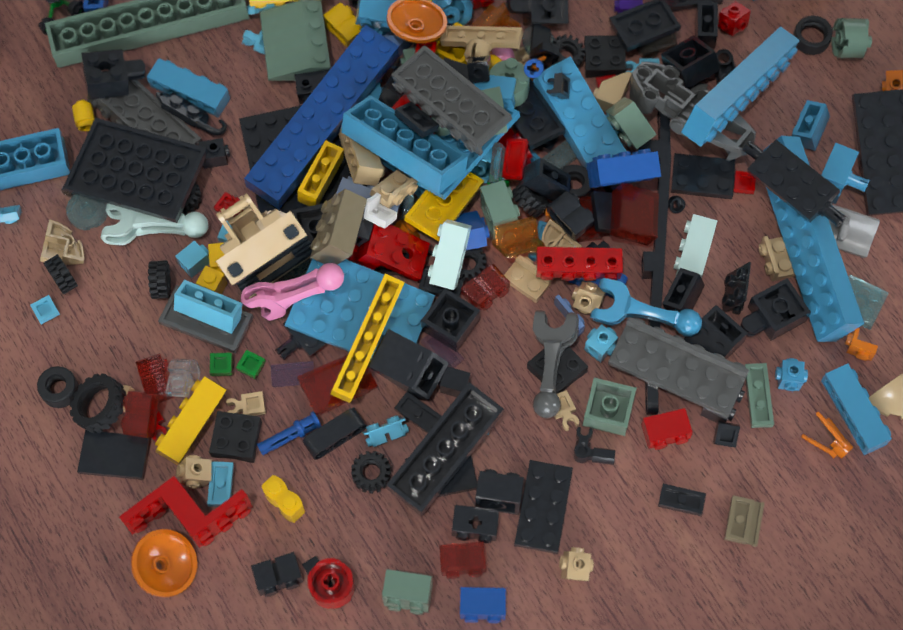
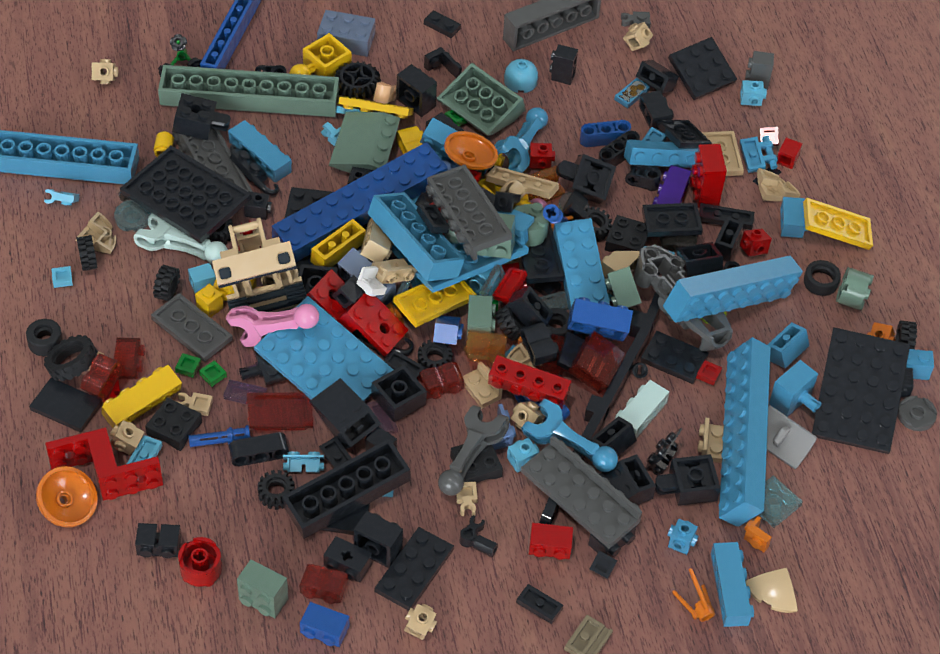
camera: 15 degrees right, 15 degrees down
(182, 376) = (150, 359): clear brick -> none
(207, 306) = (196, 313): medium azure brick -> none
(279, 496) = (191, 483): yellow brick -> none
(338, 227) = (330, 279): dark tan brick -> none
(367, 338) = (318, 378): yellow brick -> none
(449, 254) = (419, 338): light aqua brick -> none
(453, 11) = (505, 157): dark azure plate -> none
(561, 86) = (571, 236): black tile -> none
(609, 406) = (507, 506): sand green brick -> none
(759, 396) = (647, 544): sand green plate -> none
(794, 181) = (747, 376): black plate -> none

